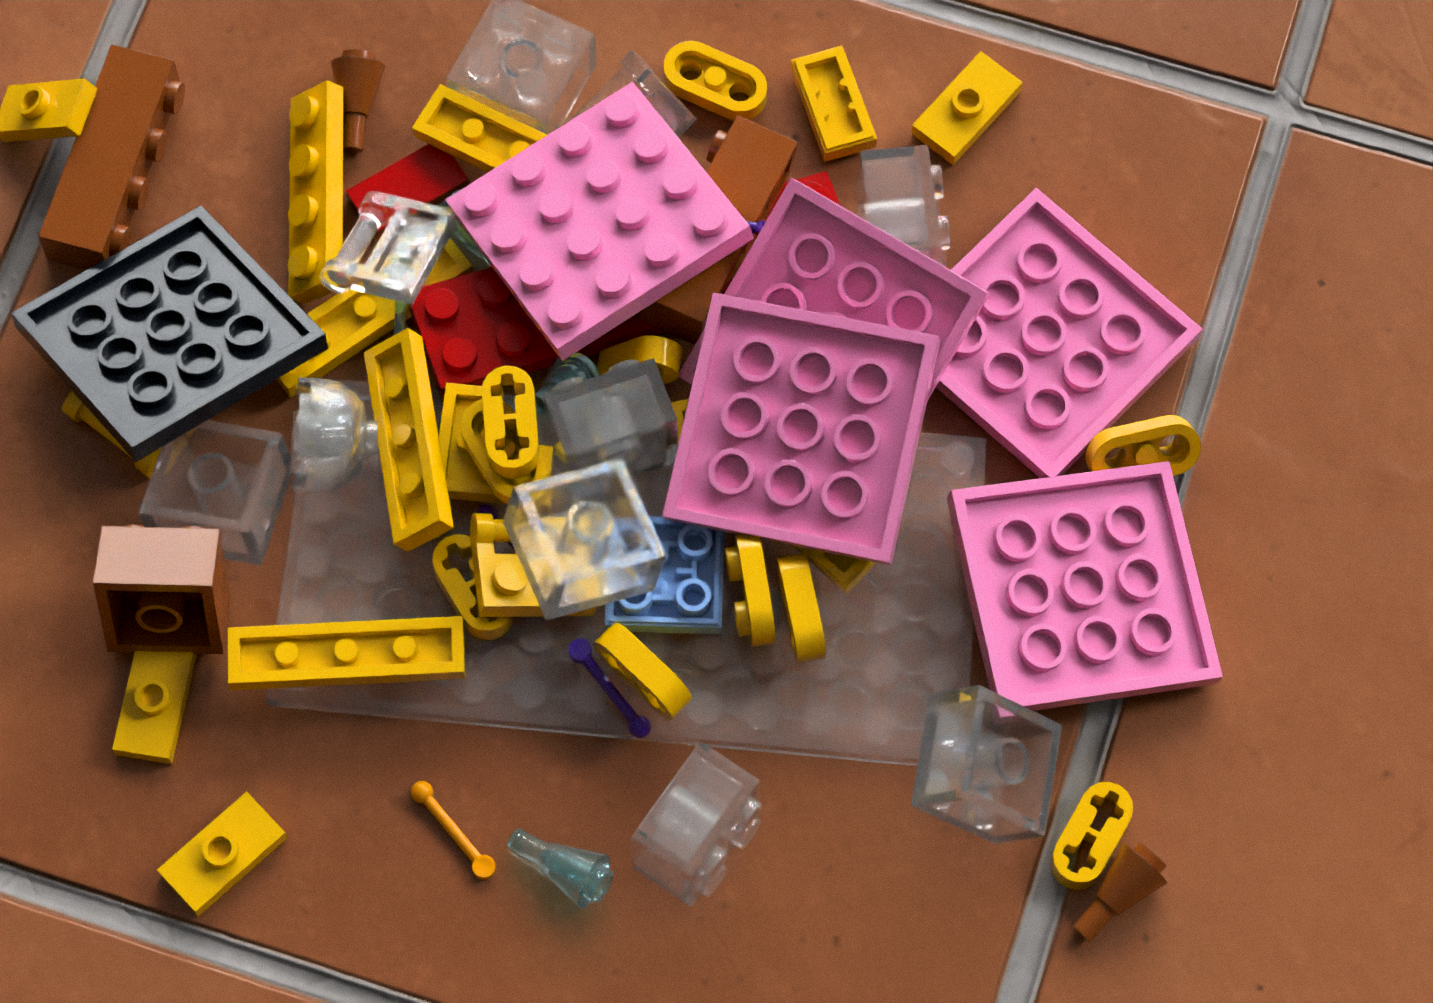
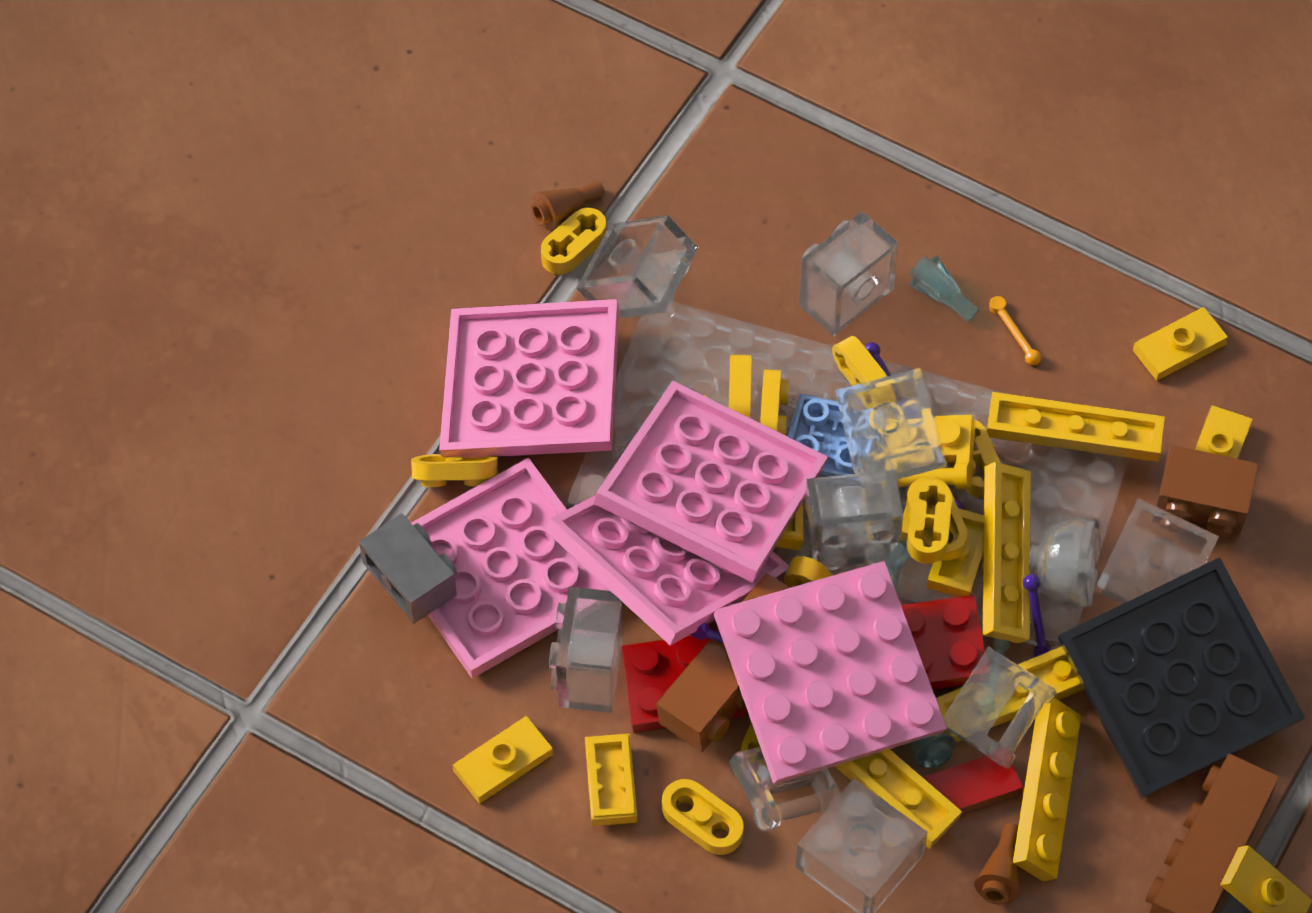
camera: 165 degrees left, 10 degrees down
(369, 395) = (1032, 583): none -> dark purple hinge
(1151, 275) = (409, 567): none -> flat silver brick

